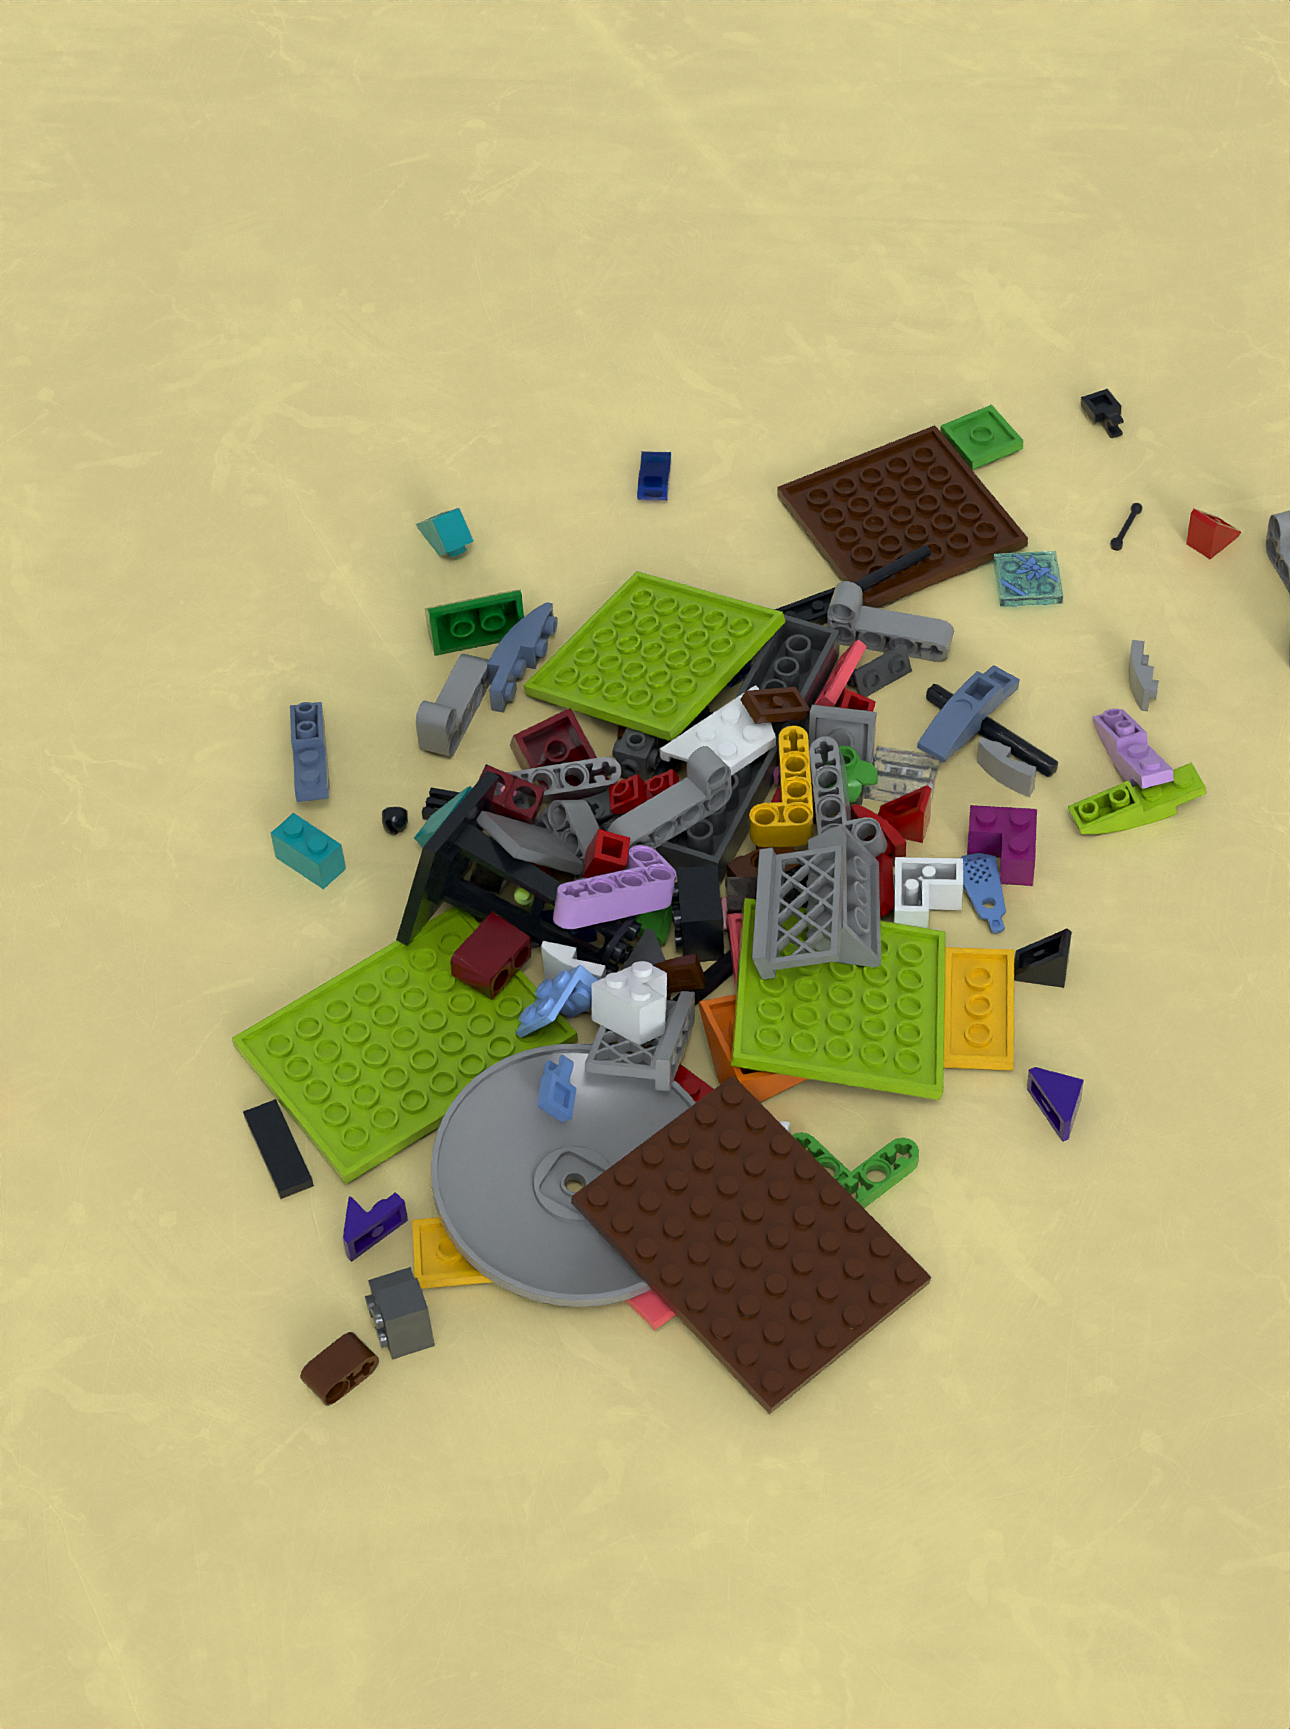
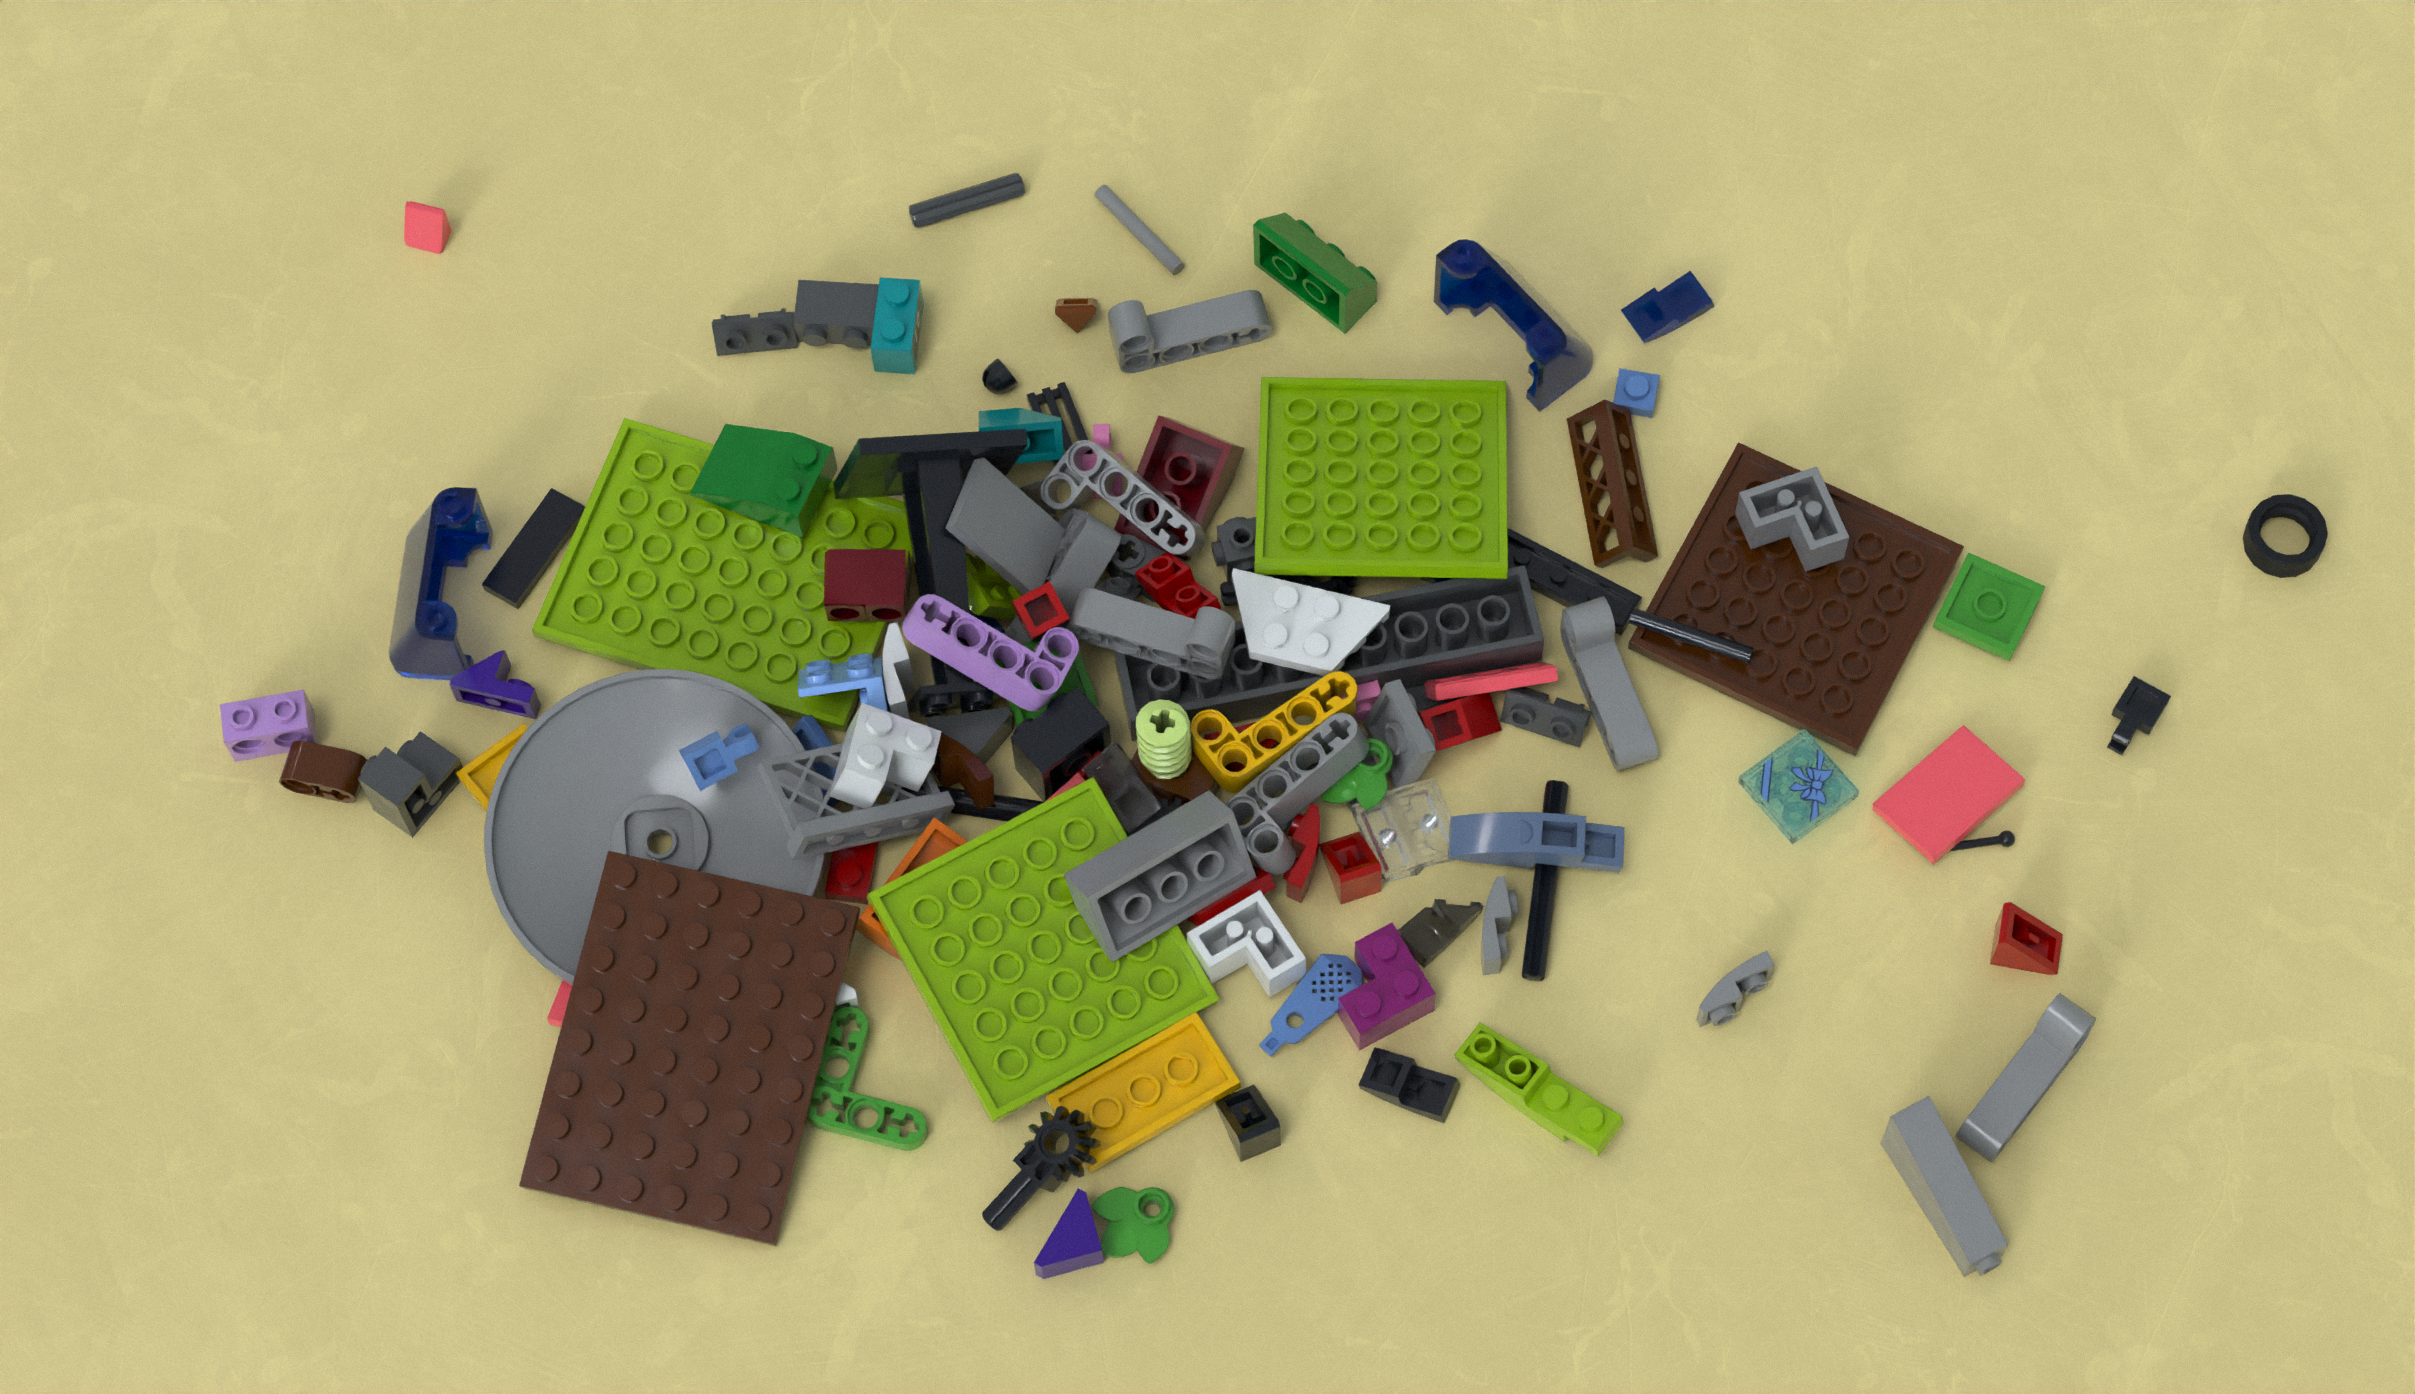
camera: 55 degrees right, 15 degrees up
(236, 934) = (762, 333): none -> dark grey hinge
(248, 772) = (966, 199): none -> dark grey axle
(266, 879) = (835, 313): none -> dark grey brick
(272, 1382) = (267, 724): none -> lavender brick
(275, 1234) = (423, 626): none -> clear blue windscreen
(309, 752) = (1027, 240): sand blue slope -> none
(356, 972) = (767, 476): none -> green slope
(359, 696) = (1139, 229): none -> light grey bar
(386, 756) = (1075, 311): none -> dark orange slope
(446, 532) = (1421, 158): teal slope -> none
(506, 797) = (1072, 468): dark red piece -> none
(517, 651) = (1316, 339): sand blue slope -> none
(602, 532) = (1479, 278): none -> clear blue windscreen
(697, 521) = (1636, 392): none -> medium blue plate
(749, 833) = (1164, 738): none -> yellowish green piece
(758, 553) = (1620, 477): none -> reddish brown fence
(771, 916) = (1073, 815): light grey fence -> none
(775, 705) = (1366, 643): reddish brown plate -> none
(860, 471) = (1796, 509): none -> light grey brick
(979, 792) = (1437, 928): none -> clear smoke slope
(994, 1083) = (1042, 1164): none -> black gear
(1044, 308) = (2293, 508): none -> black tyre
(1074, 1063) = (1129, 1225): none -> bright green plate
(1080, 870) = (1408, 1085): none -> black slope
(1088, 517) = (1948, 794): none -> coral tile
(1130, 751) = (1609, 1043): lavender slope -> none

